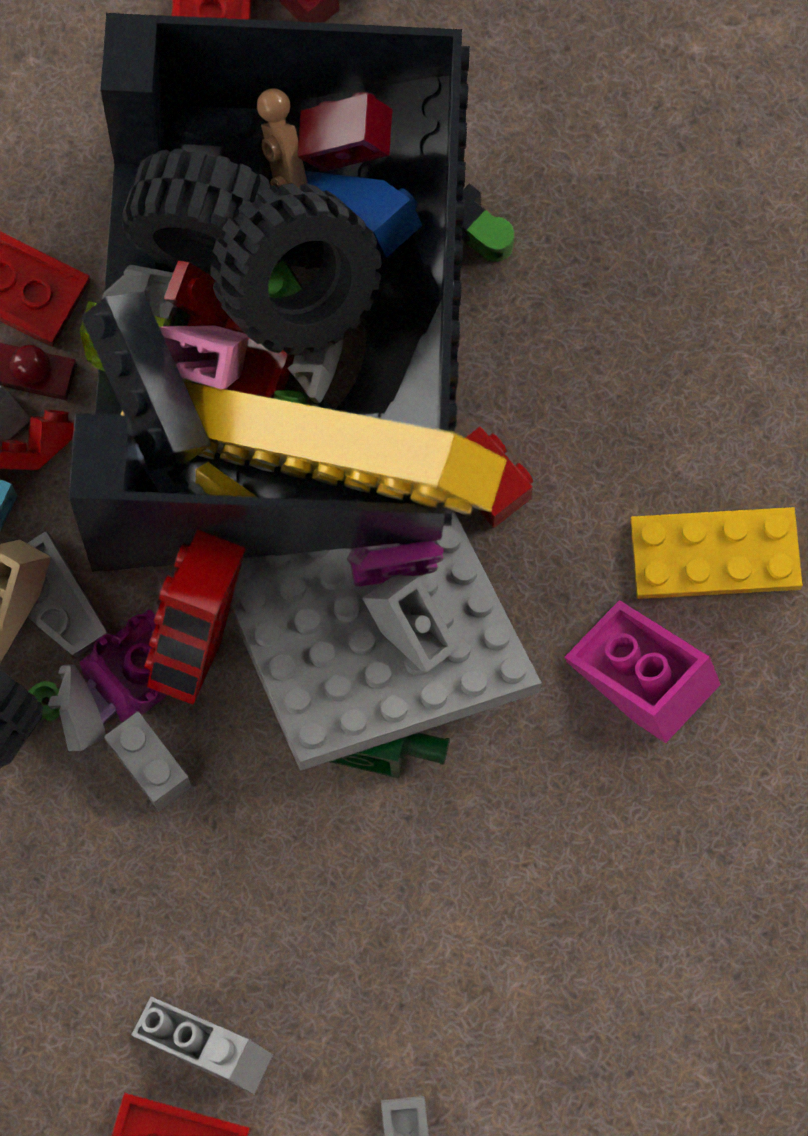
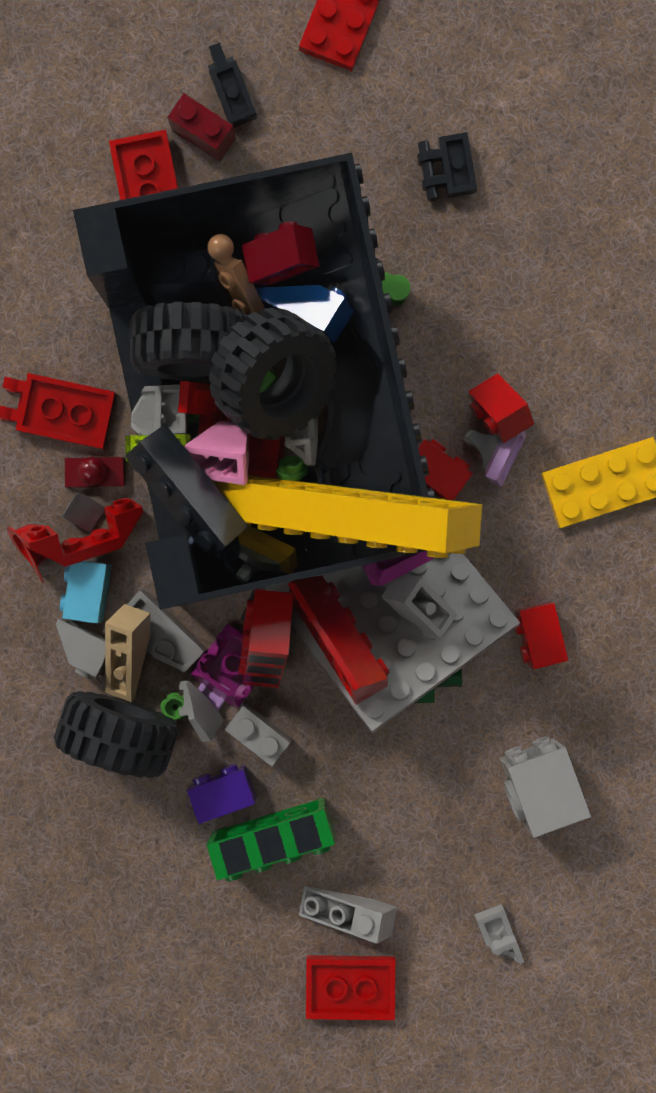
camera: 15 degrees left, 15 degrees up
(73, 830) = (221, 793): none -> dark purple brick
(124, 903) = (271, 839): none -> green brick
(290, 631) = (338, 638): none -> red slope
(521, 927) = (543, 787): none -> light grey brick
(573, 729) = (540, 636): none -> red brick
(577, 472) = (496, 455): none -> lavender piece
(591, 414) = (500, 408): none -> red brick
(616, 106) = (456, 166): none -> black plate
(644, 670) = (577, 580): dark pink slope -> none

